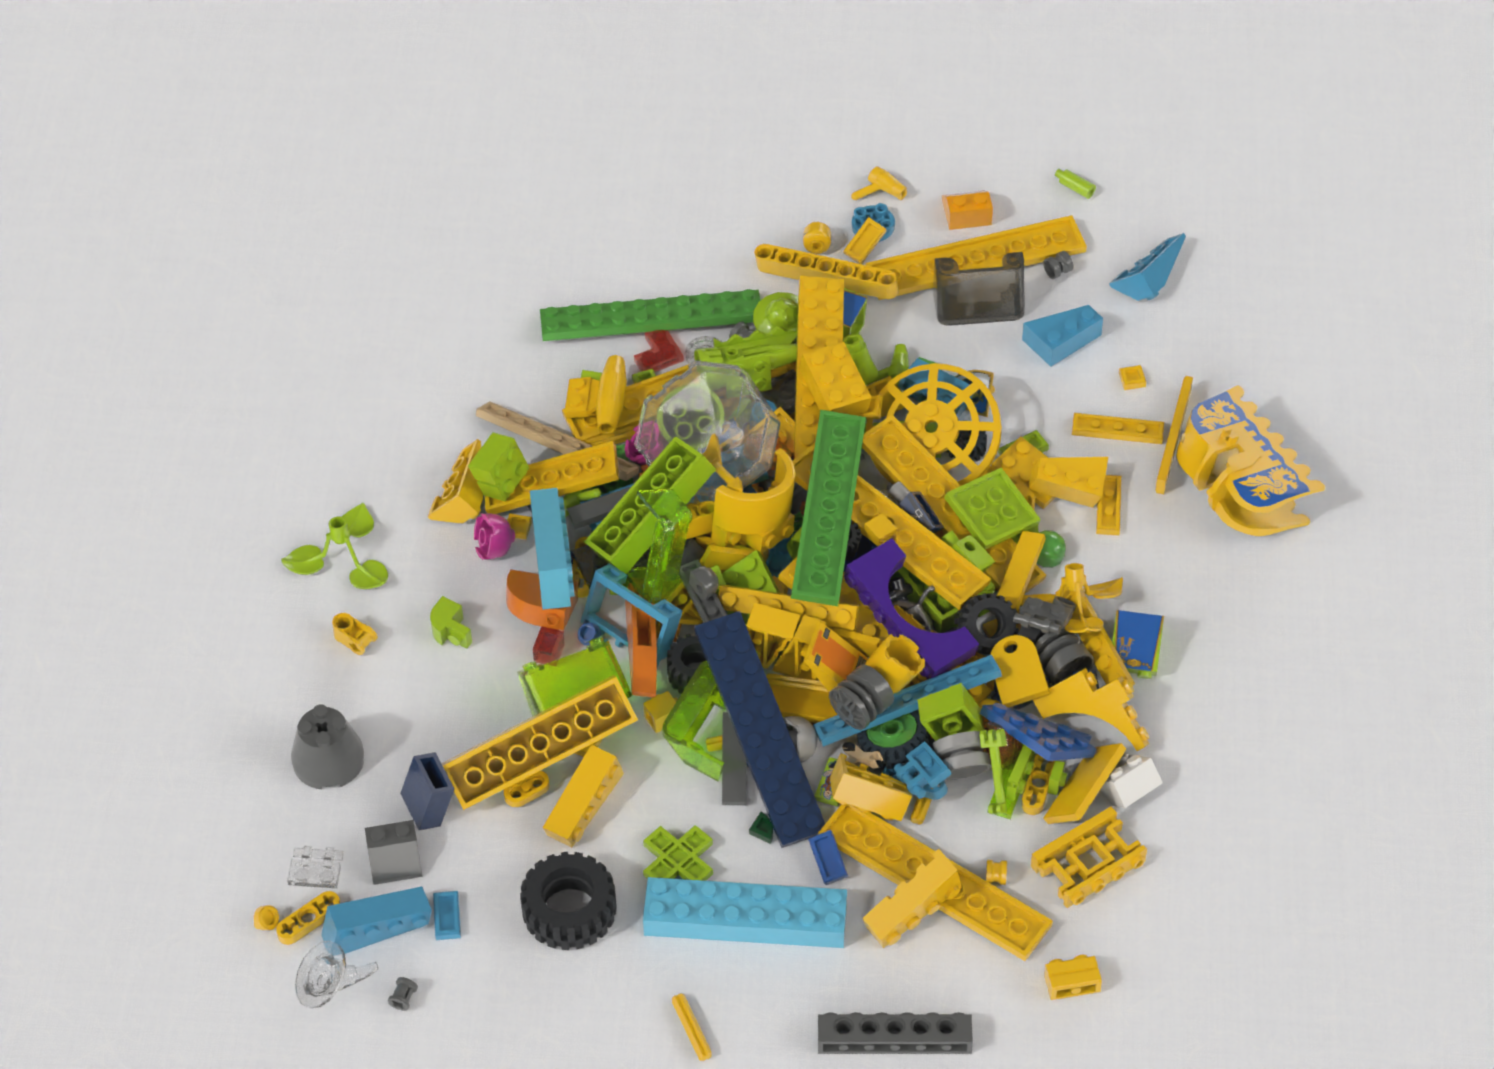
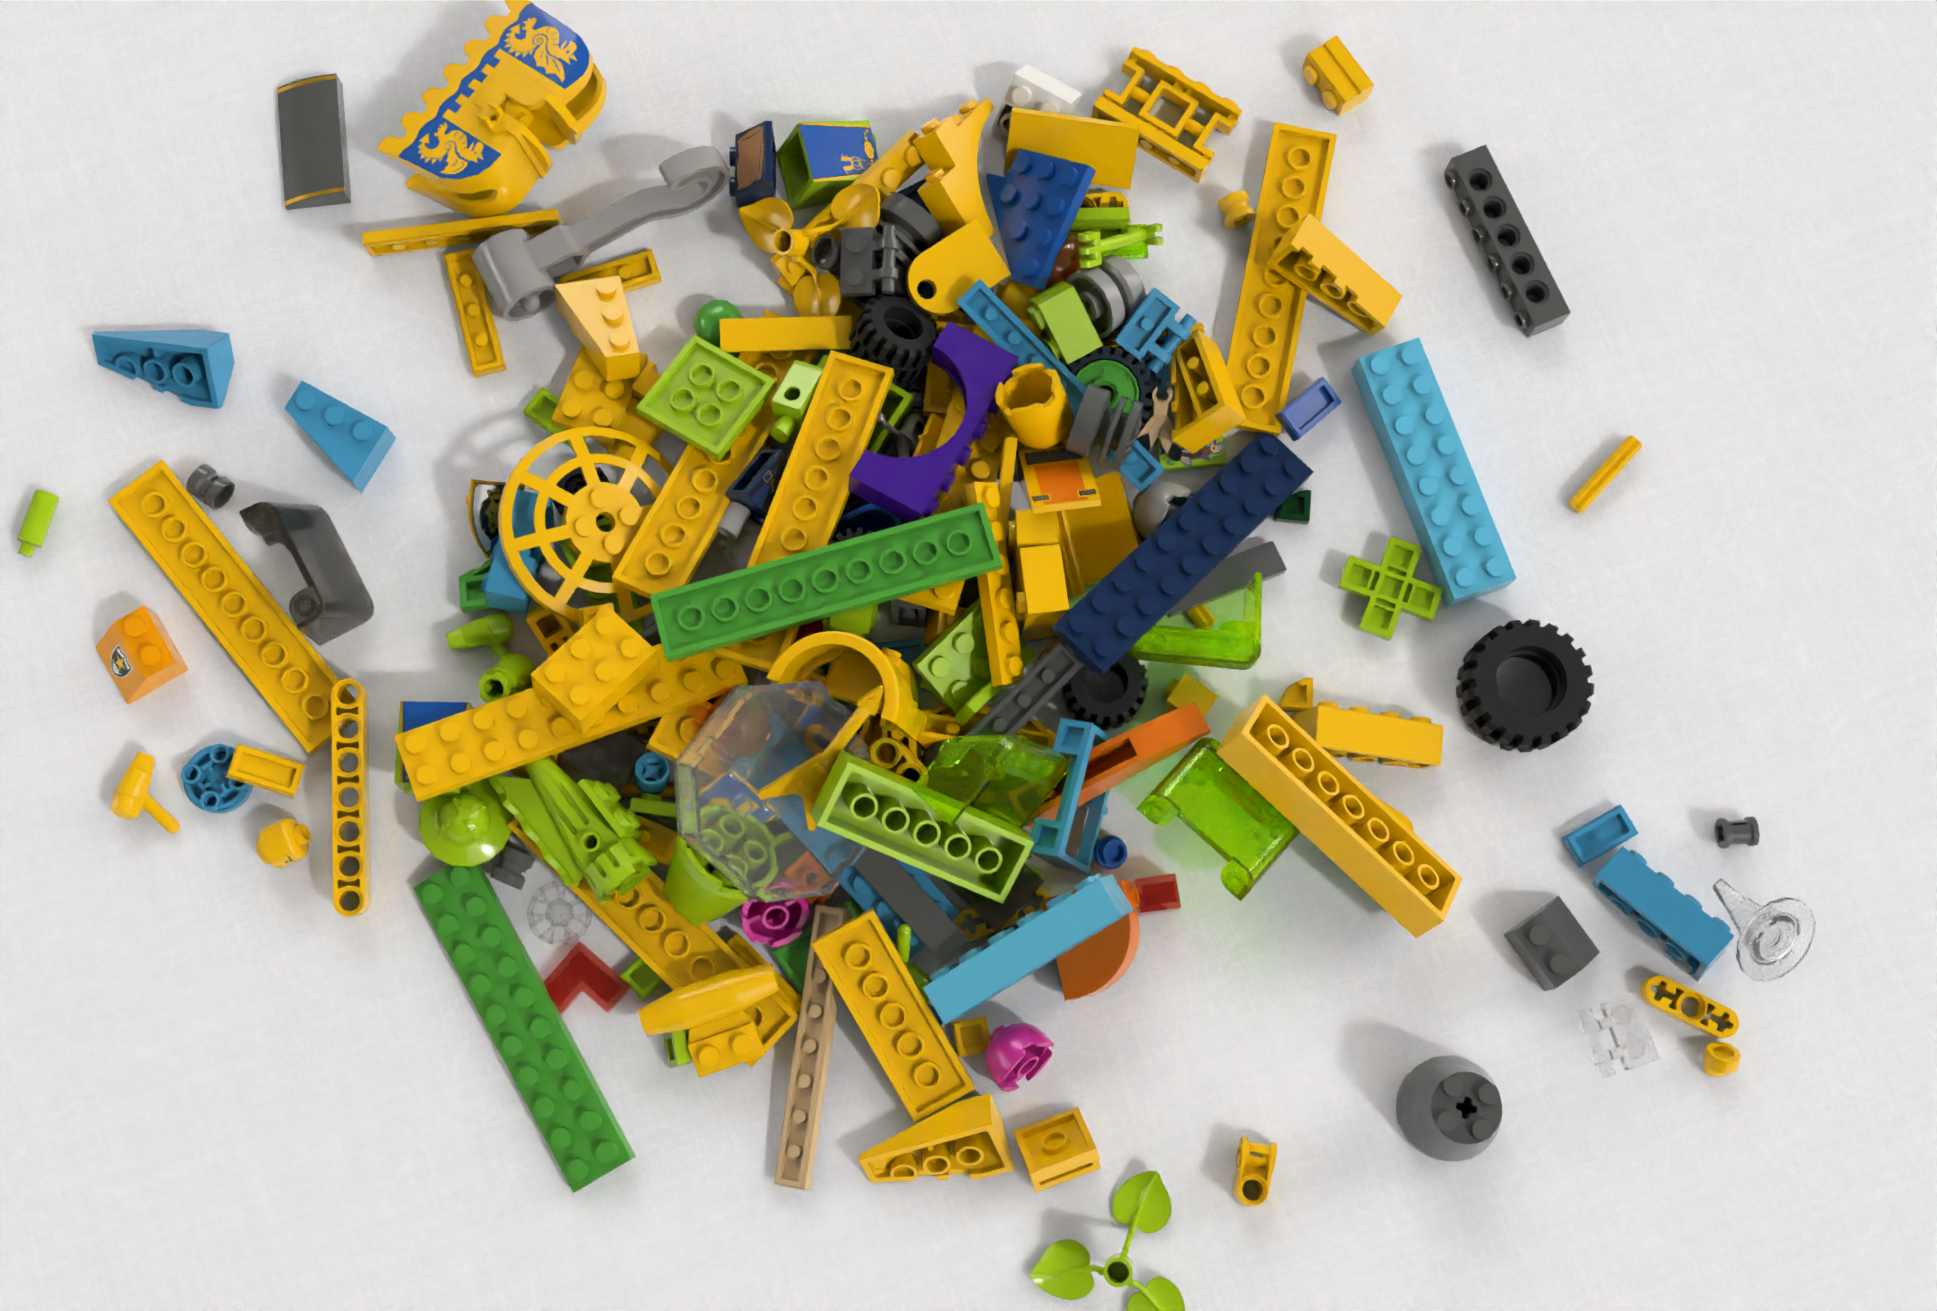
camera: 120 degrees left, 25 degrees up
(426, 537) = (1057, 1149): none -> yellow bracket
(427, 791) = (1467, 932): dark blue brick -> none
(446, 621) = (1181, 1056): lime brick -> none
(498, 466) = (918, 1089): lime piece -> none
(633, 778) = (1298, 696): none -> yellow tile
(703, 582) = (1013, 700): dark grey piece -> none
(723, 556) = (936, 706): yellow tile -> none
(880, 528) = (825, 507): yellow tile -> none
(1131, 451) = (524, 270): none -> light grey piece
(1132, 377) = (377, 324): yellow tile -> none
(1149, 599) = (754, 165): none -> slope
(1275, 381) = (314, 142): none -> dark grey slope

